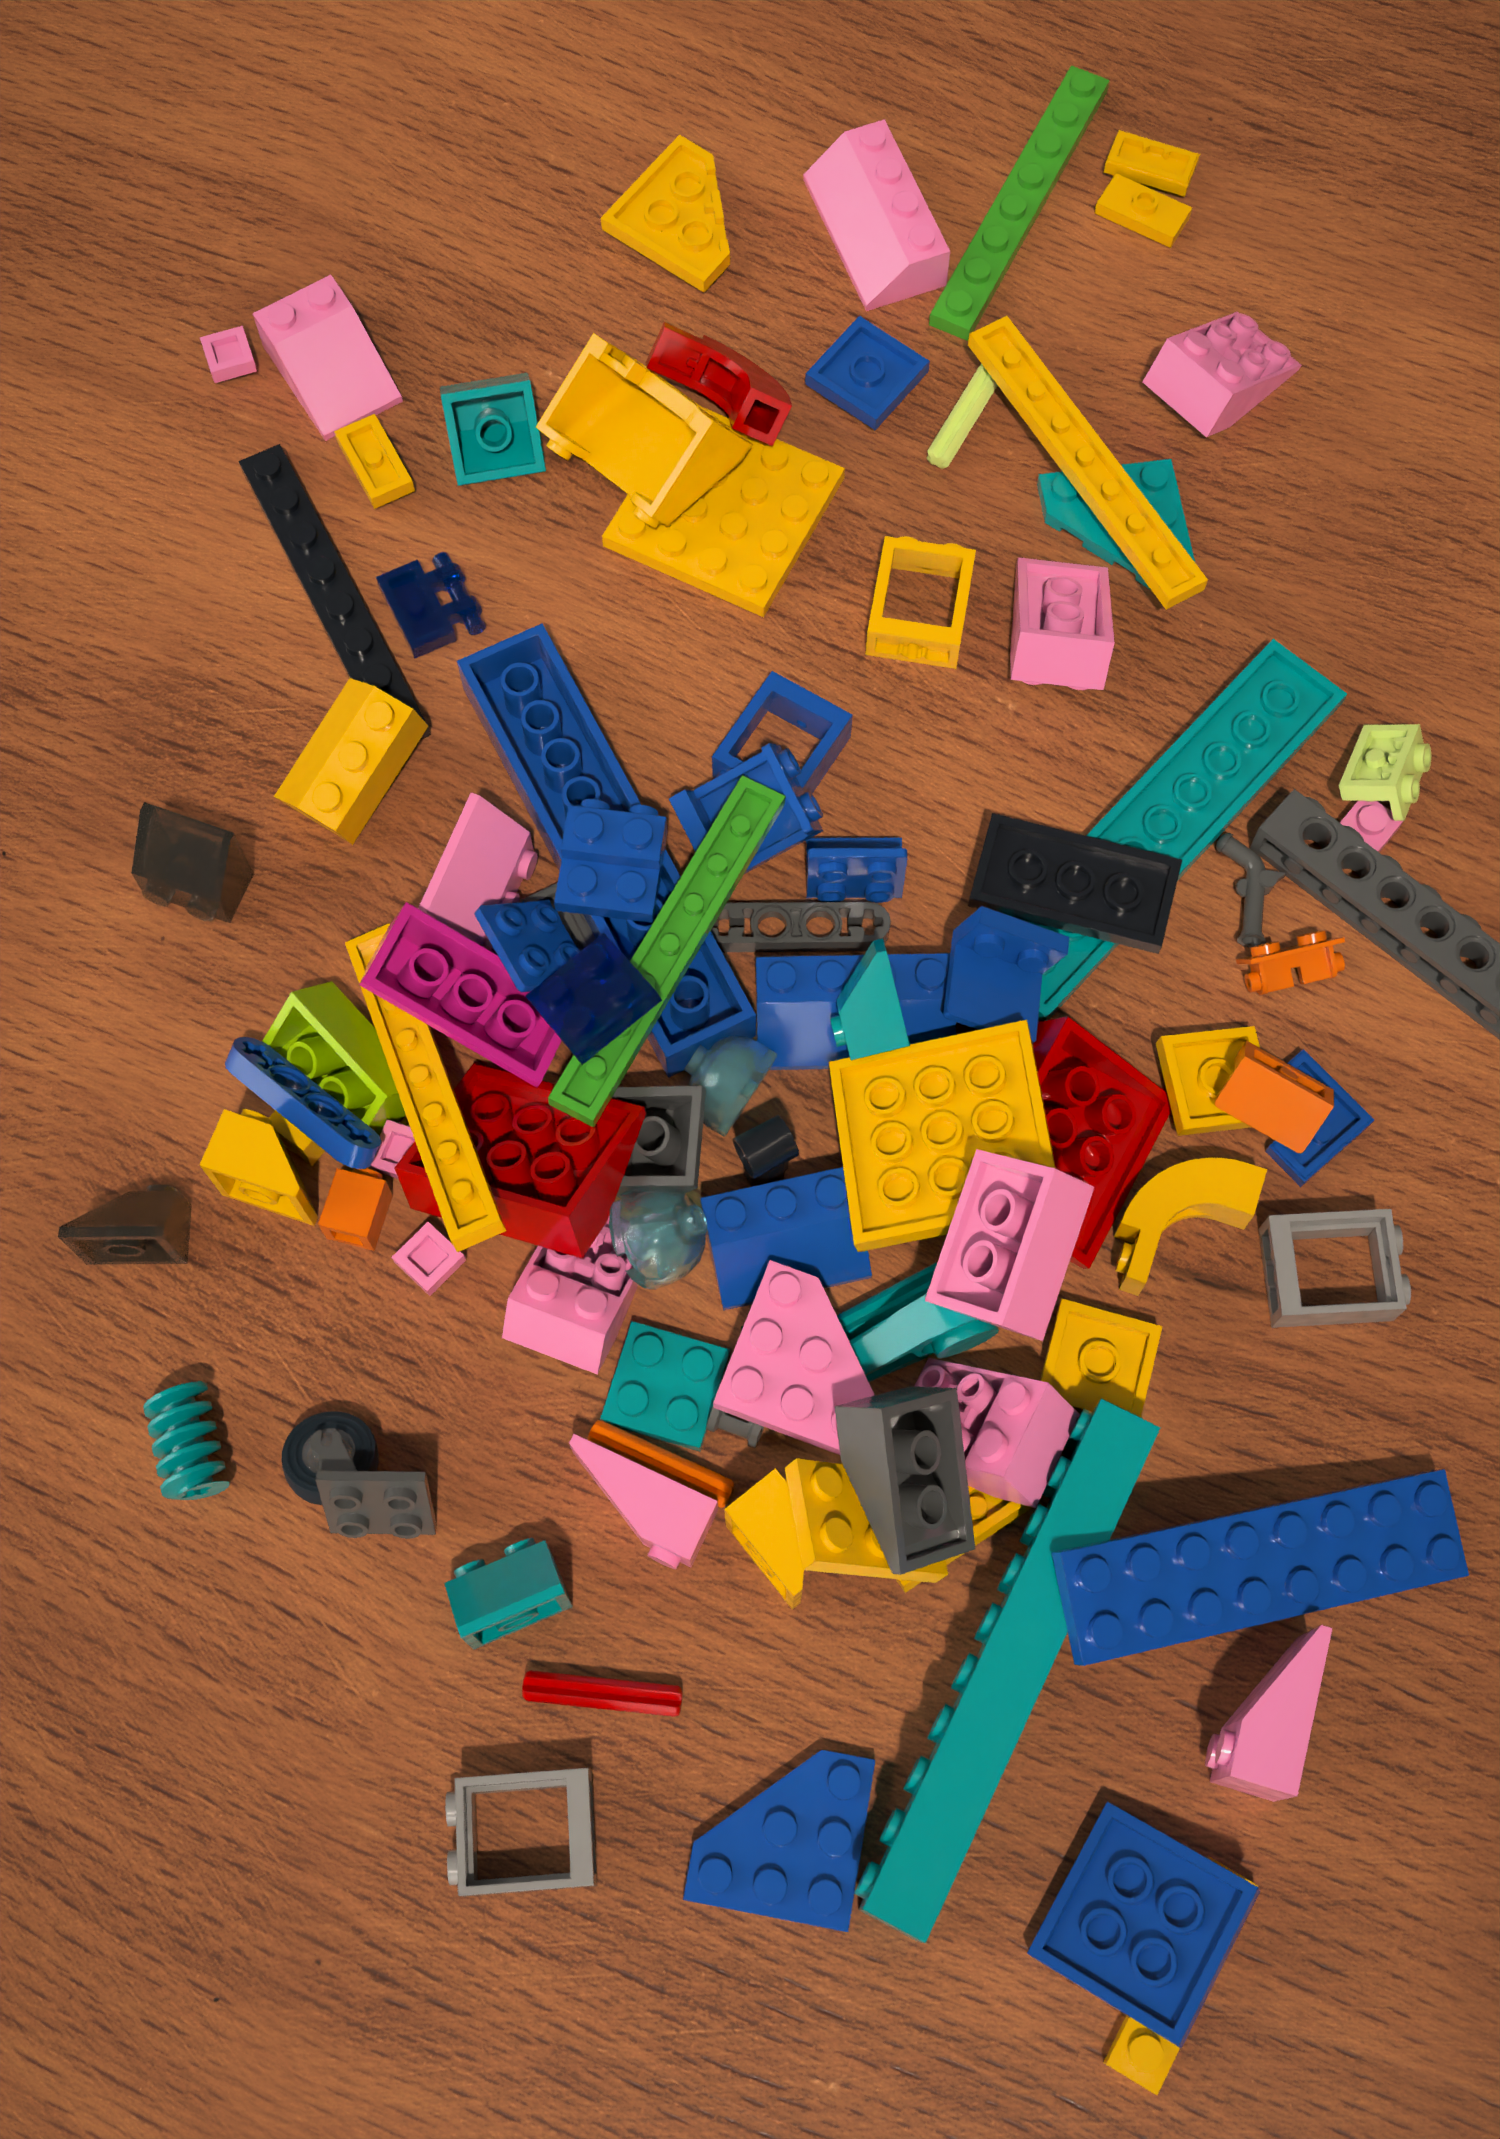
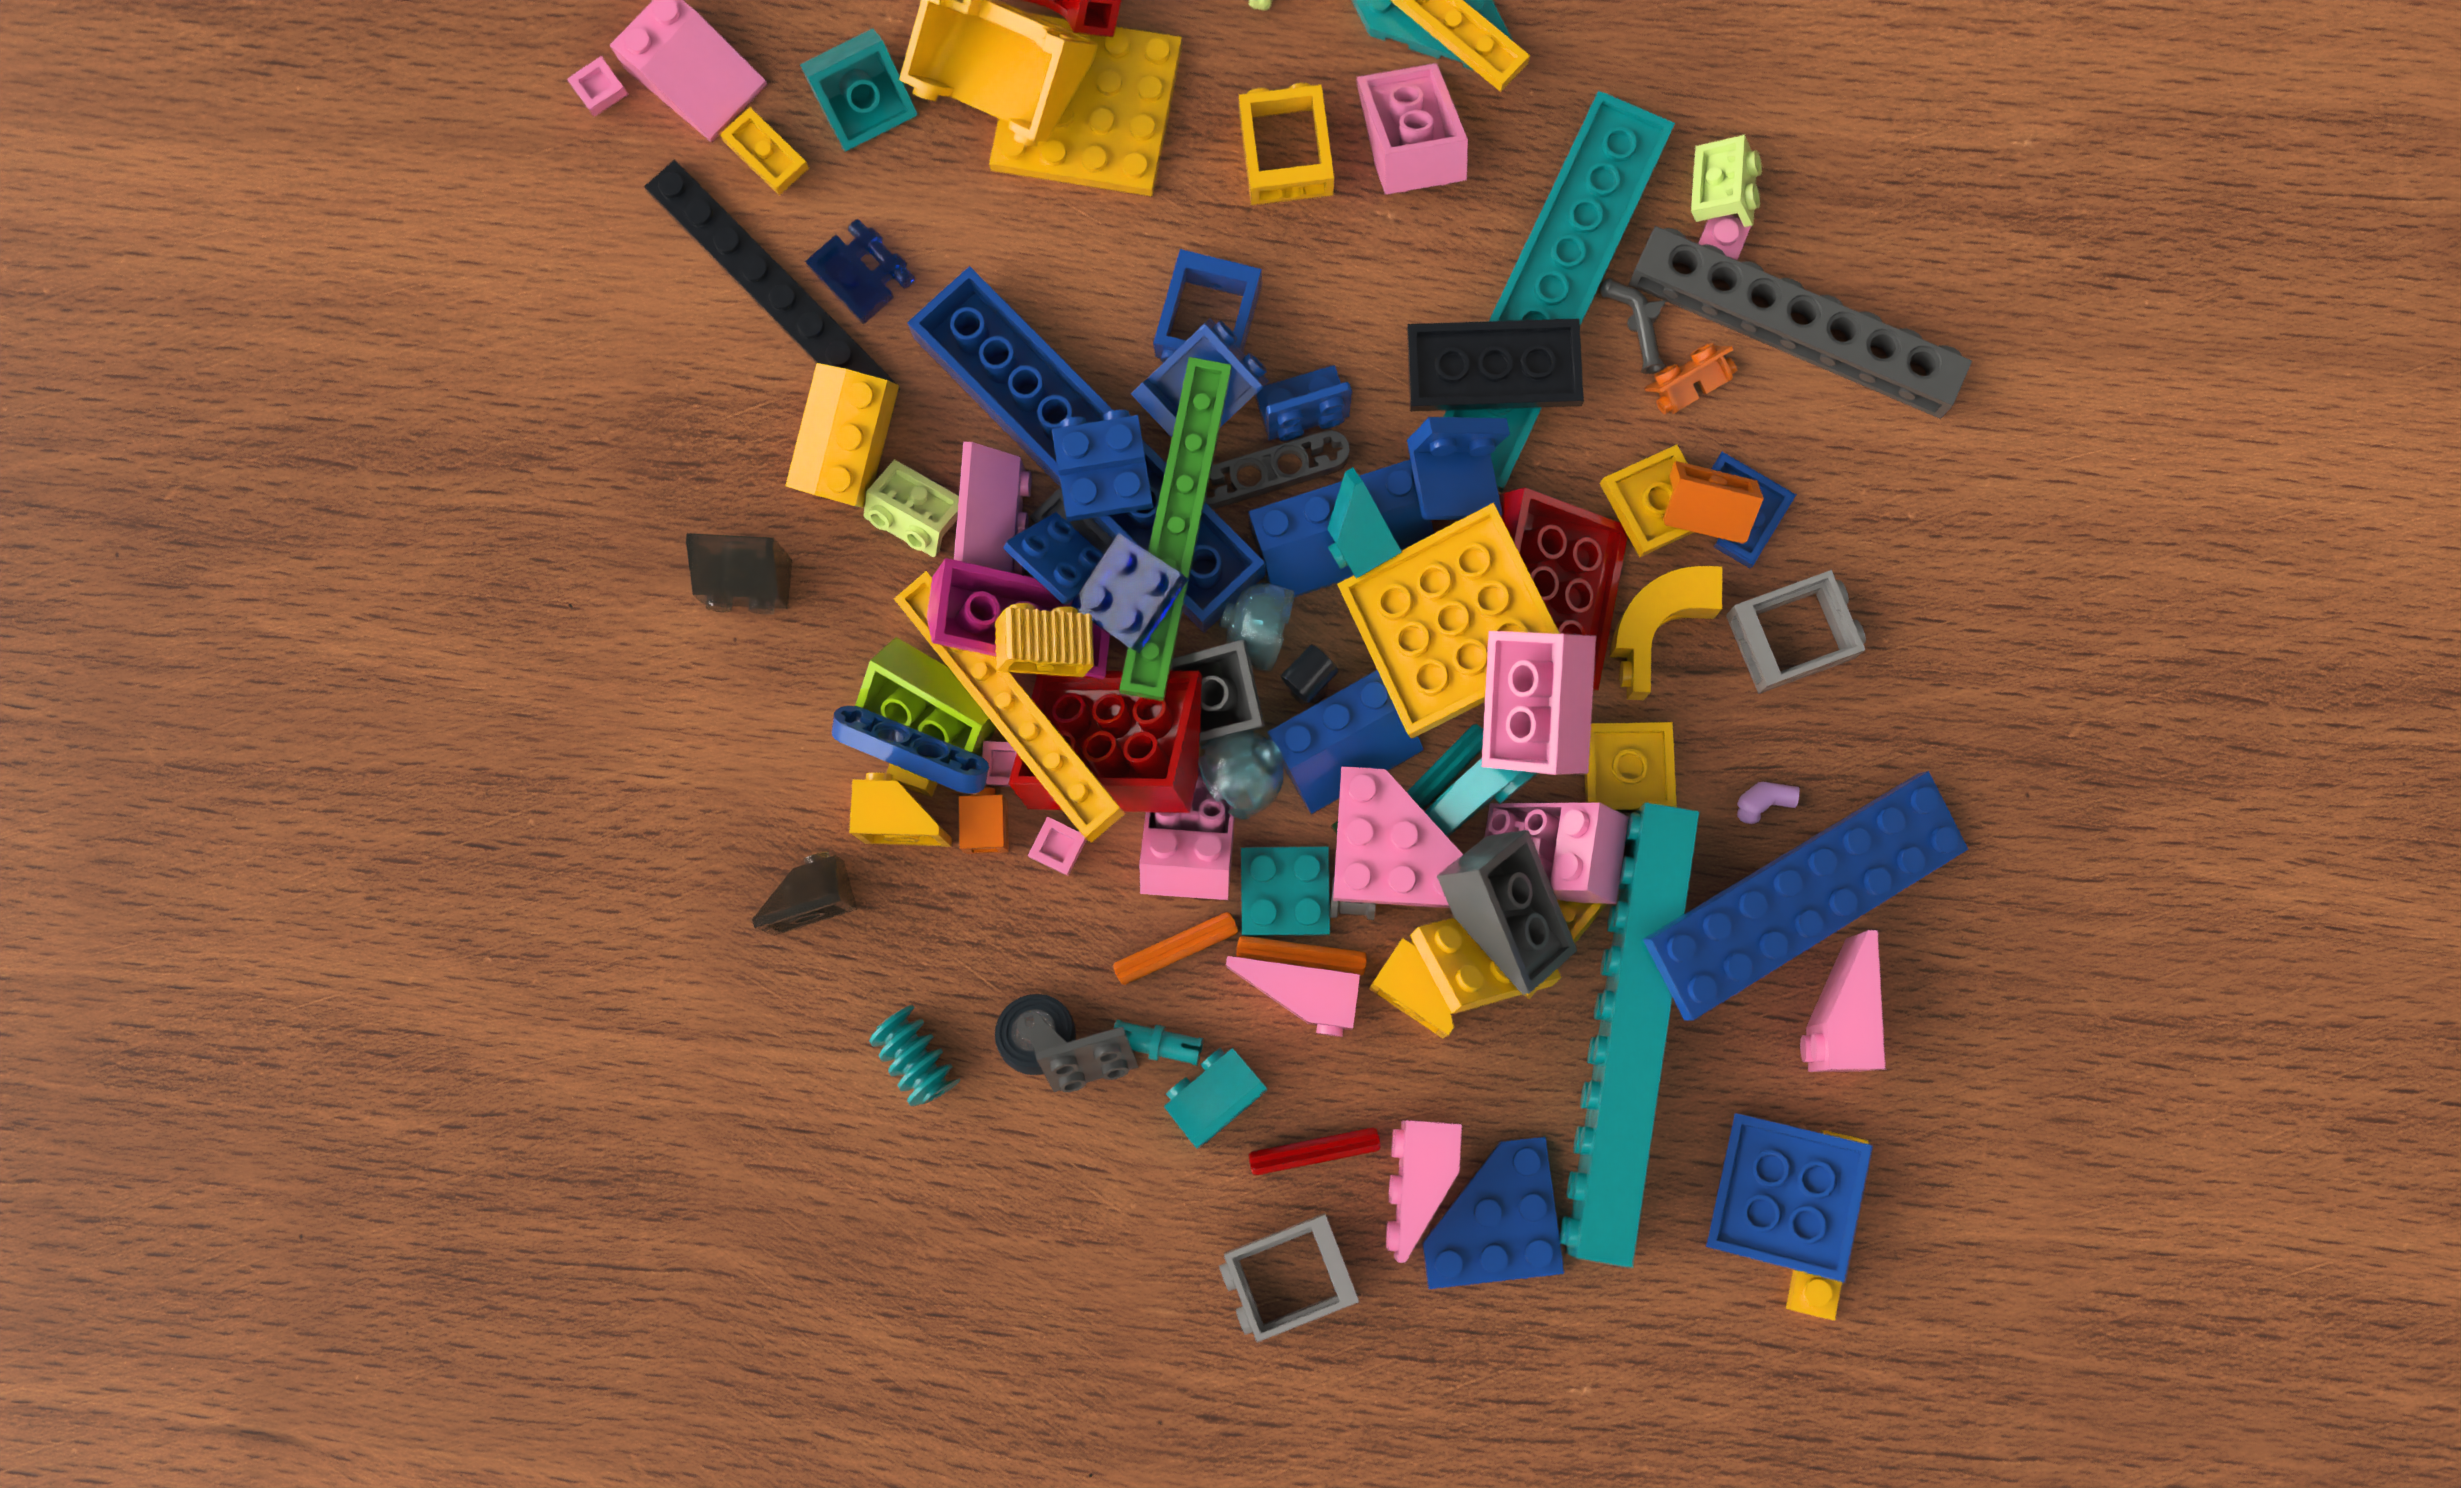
camera: 10 degrees left, 10 degrees up
(394, 853) = (911, 507): none -> yellowish green bracket
(467, 1513) = (1161, 1043): none -> teal pin
(482, 1020) = (1044, 641): none -> yellow brick
(521, 1411) = (1175, 948): none -> orange axle
(720, 1755) = (1426, 1171): none -> bright pink slope
(1242, 1443) = (1762, 796): none -> lavender arm

